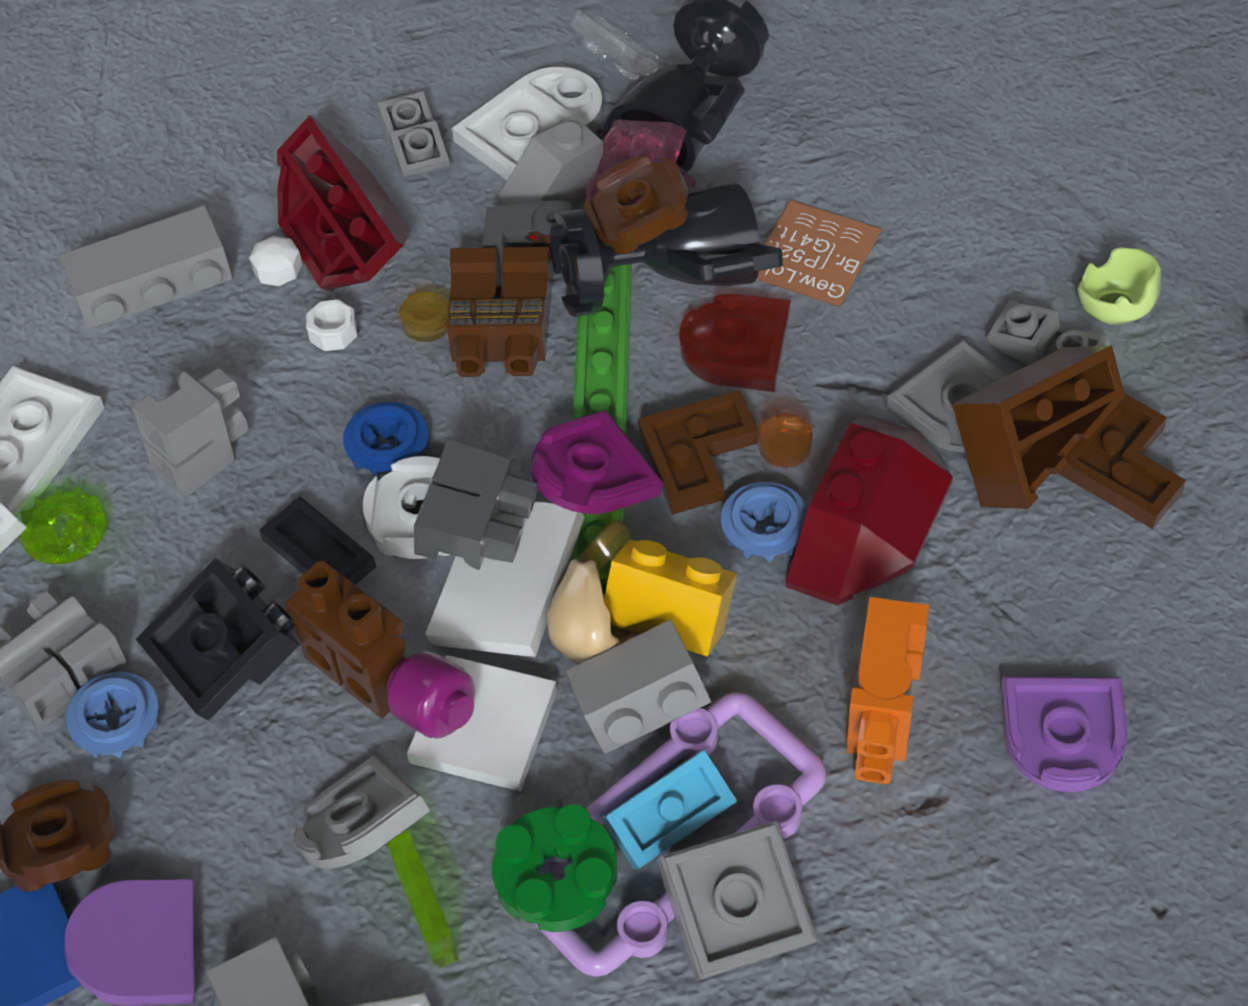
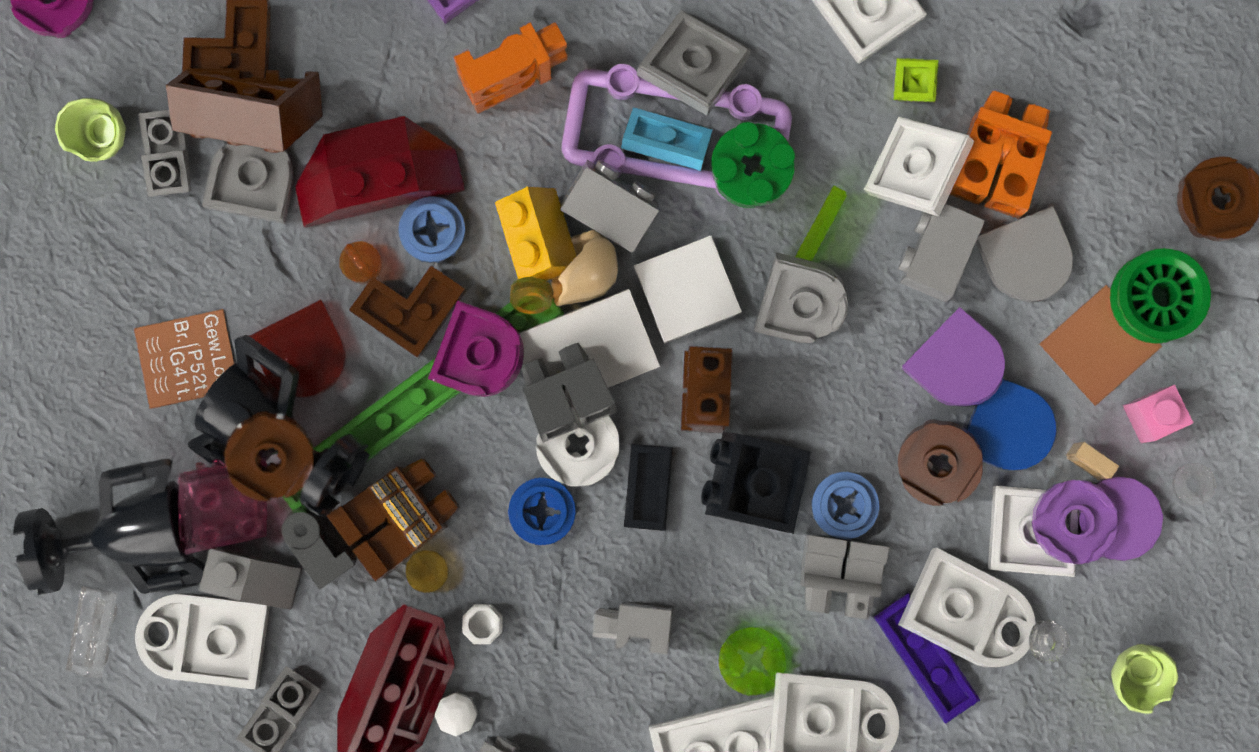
camera: 130 degrees left, 30 degrees up
(431, 694) = (704, 315): magenta head -> none

